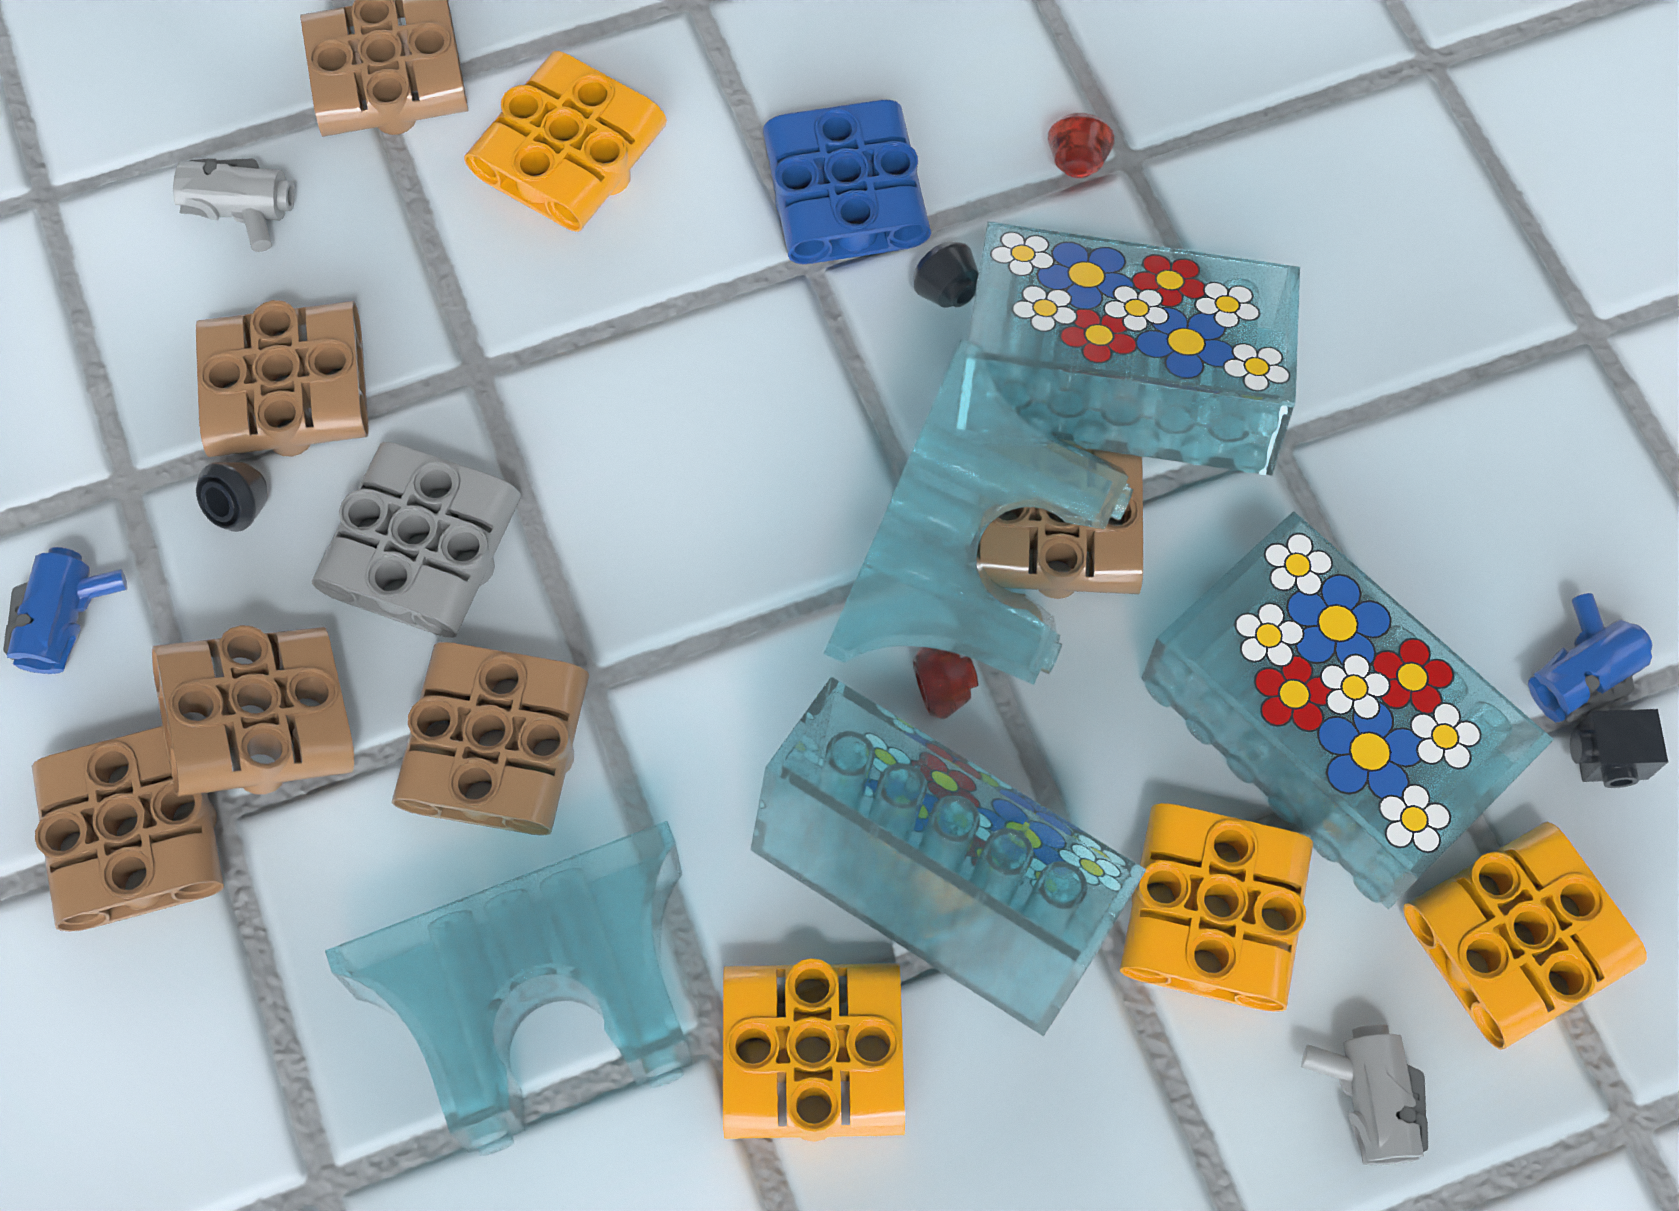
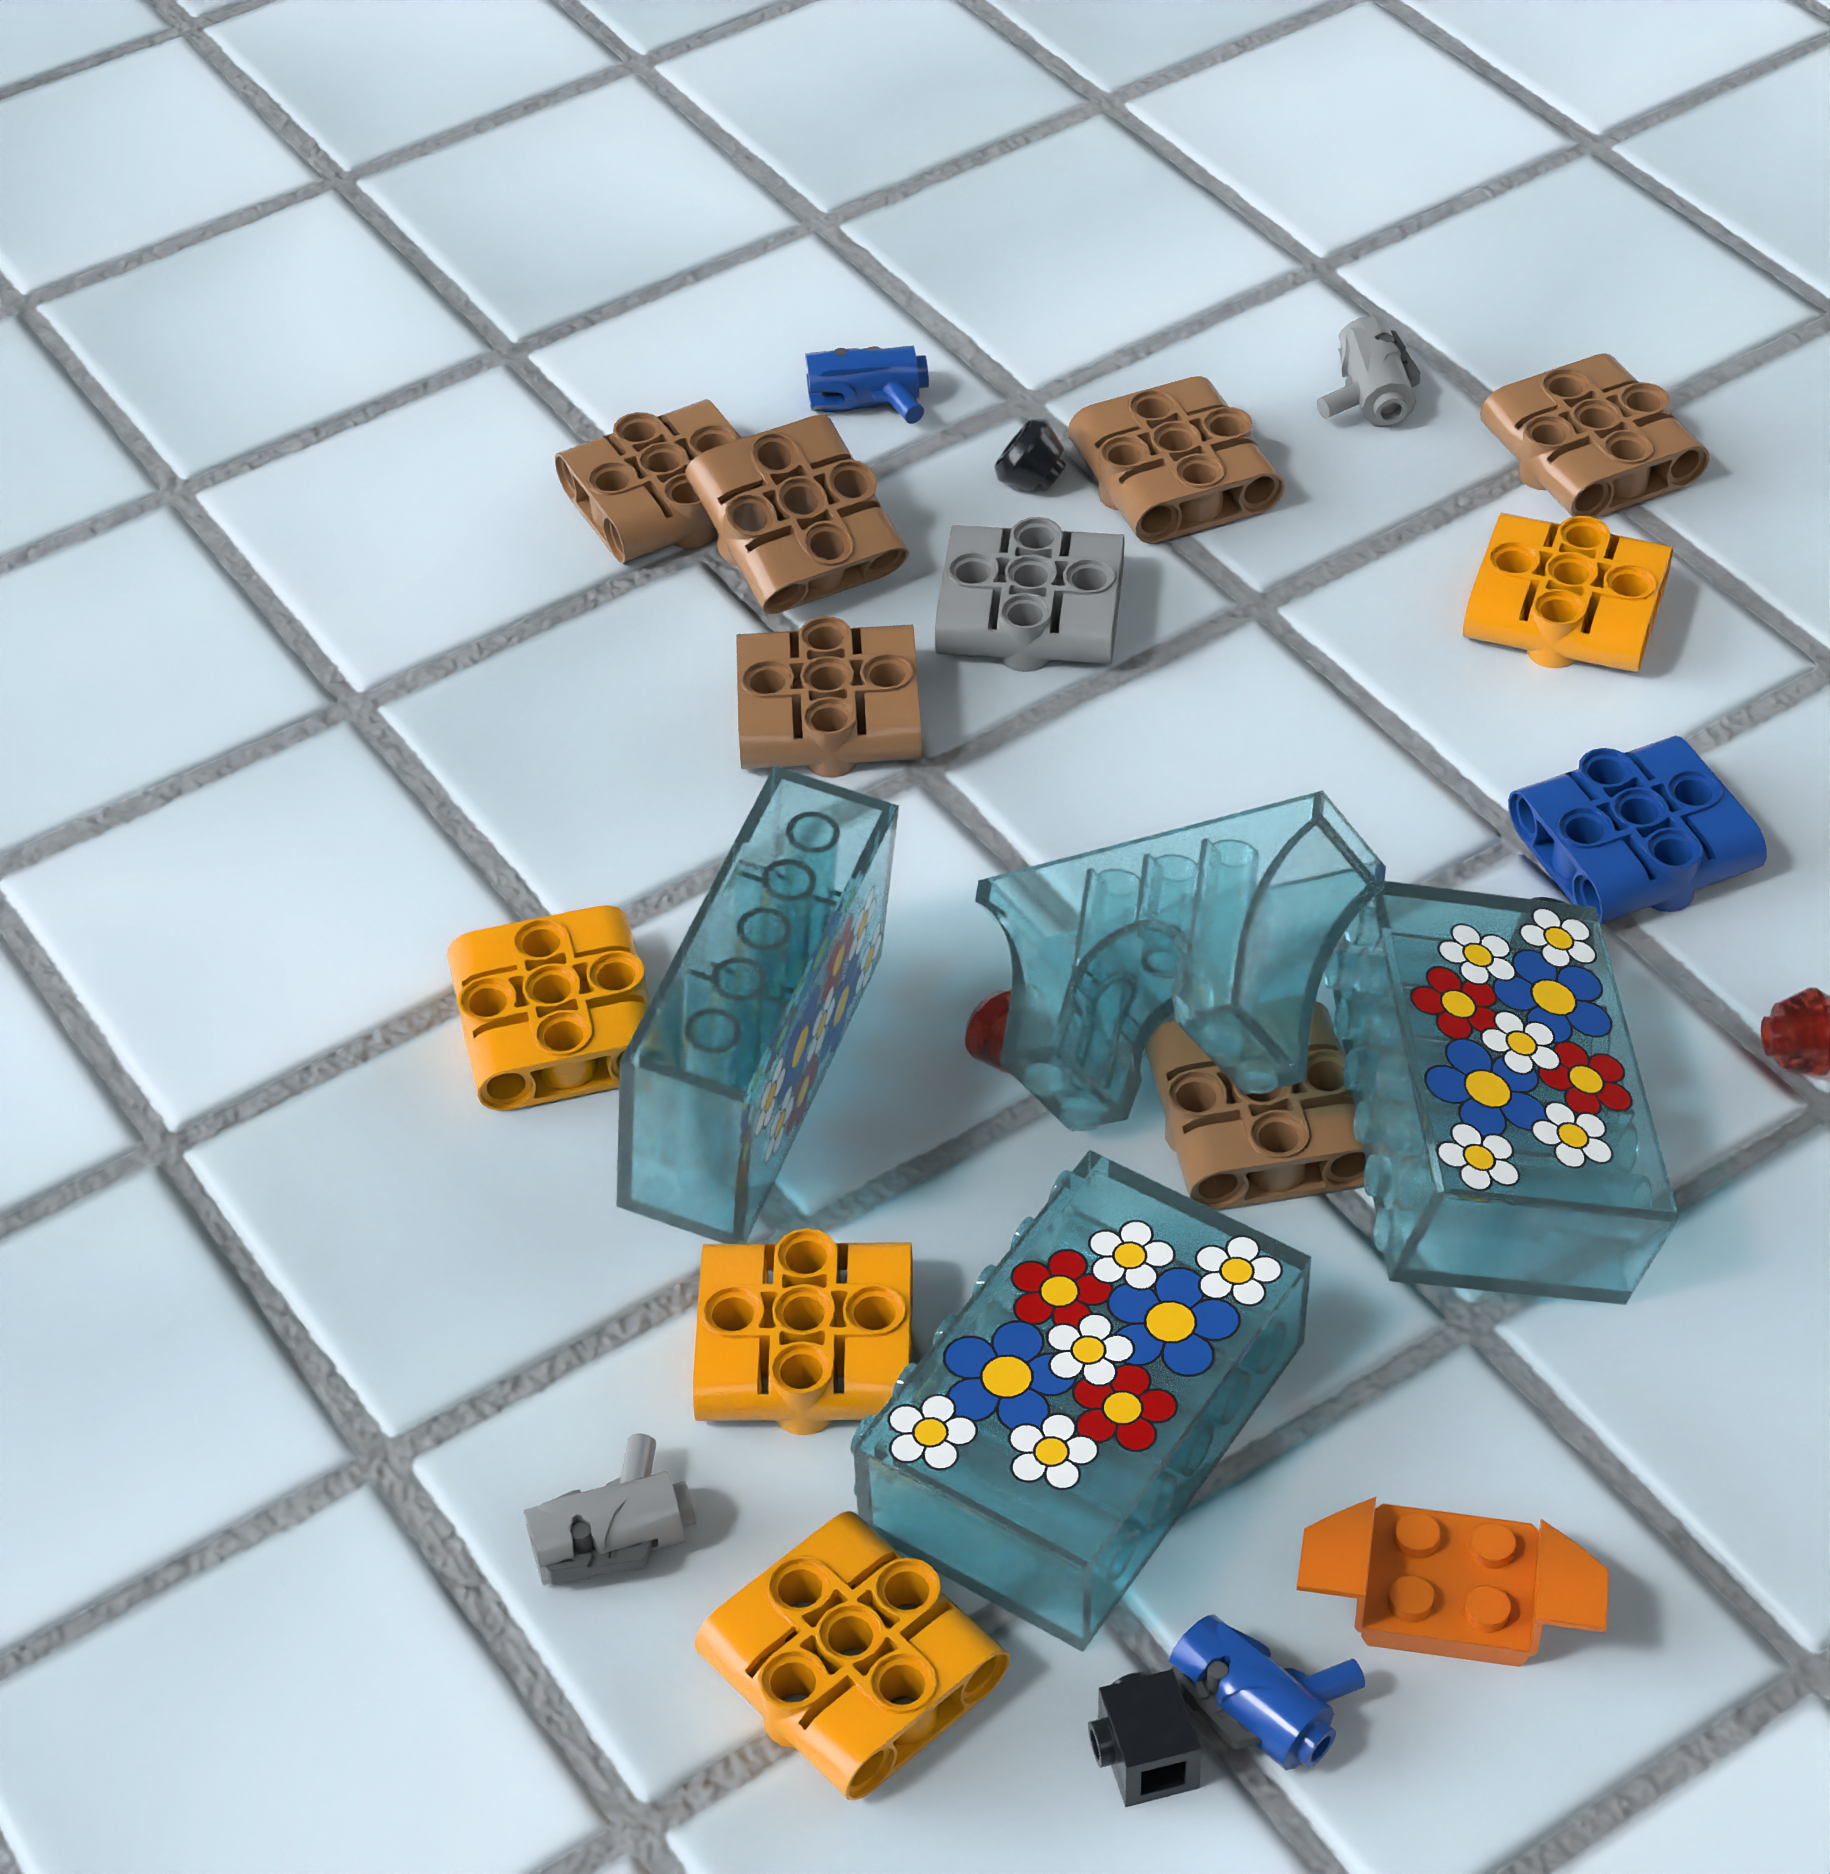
camera: 80 degrees right, 20 degrees down
(494, 957) = (570, 764): clear light blue piece -> none
(1515, 506) = (1453, 1580): none -> orange piece

